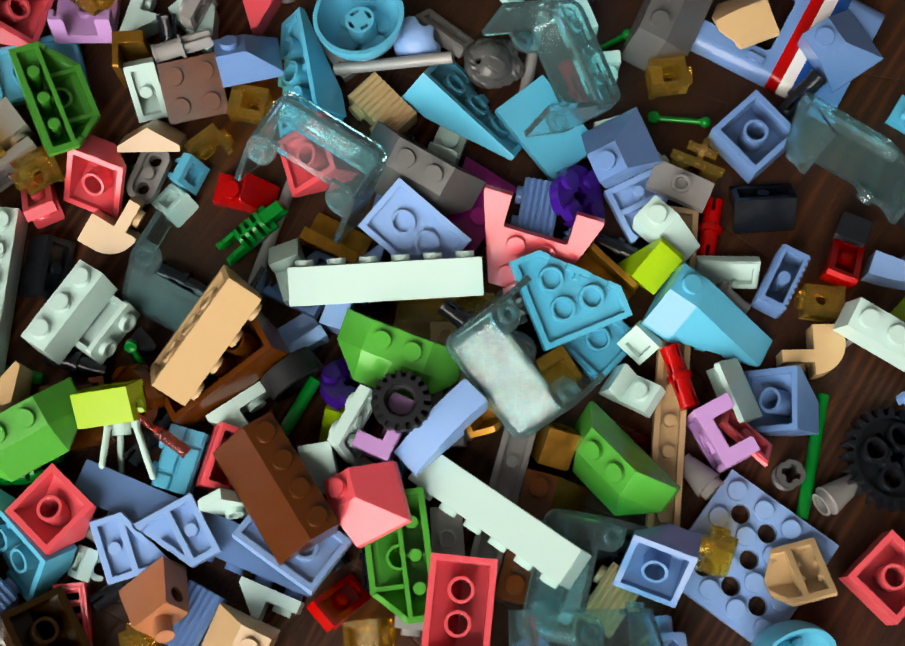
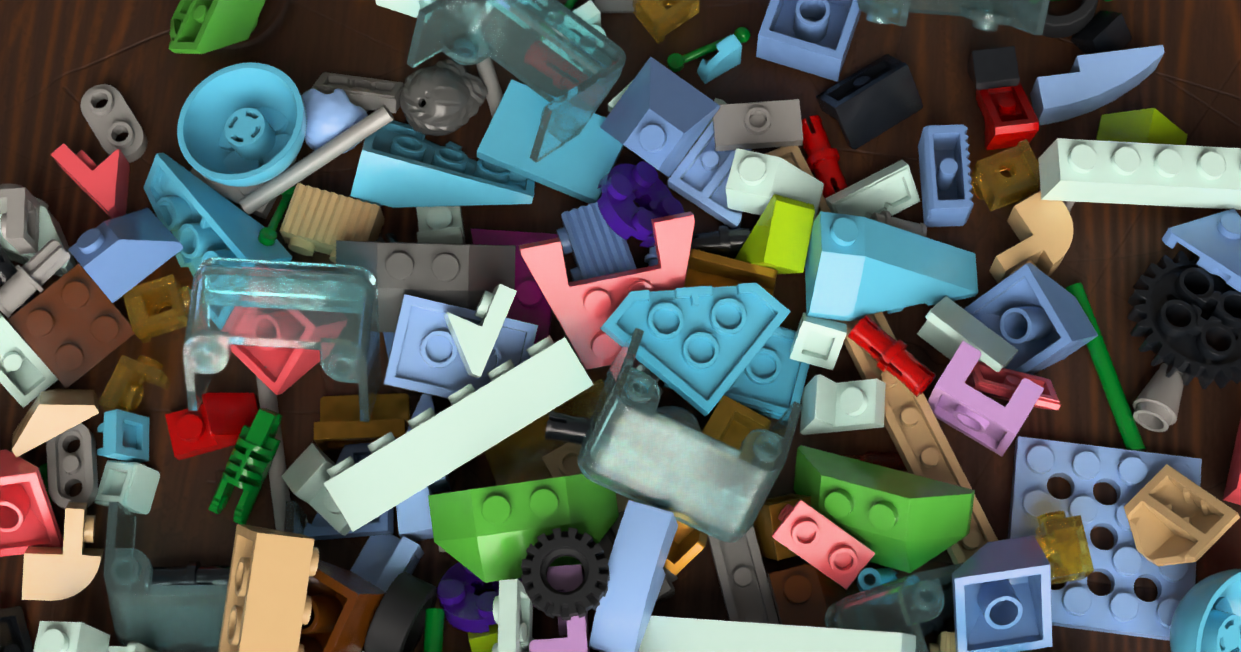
camera: 25 degrees left, 5 degrees down
(338, 95) = (268, 235): none -> green hinge
(426, 231) = (477, 341): none -> light aqua slope
(569, 468) = (822, 543): none -> coral hinge
(590, 506) = (872, 577): none -> medium azure arm
(686, 132) = (726, 59): none -> medium azure tile
(700, 477) = (988, 467): light grey cone -> none
(708, 170) = (777, 88): clear yellow hips -> none
(796, 471) = (1083, 417): dark grey bush -> none

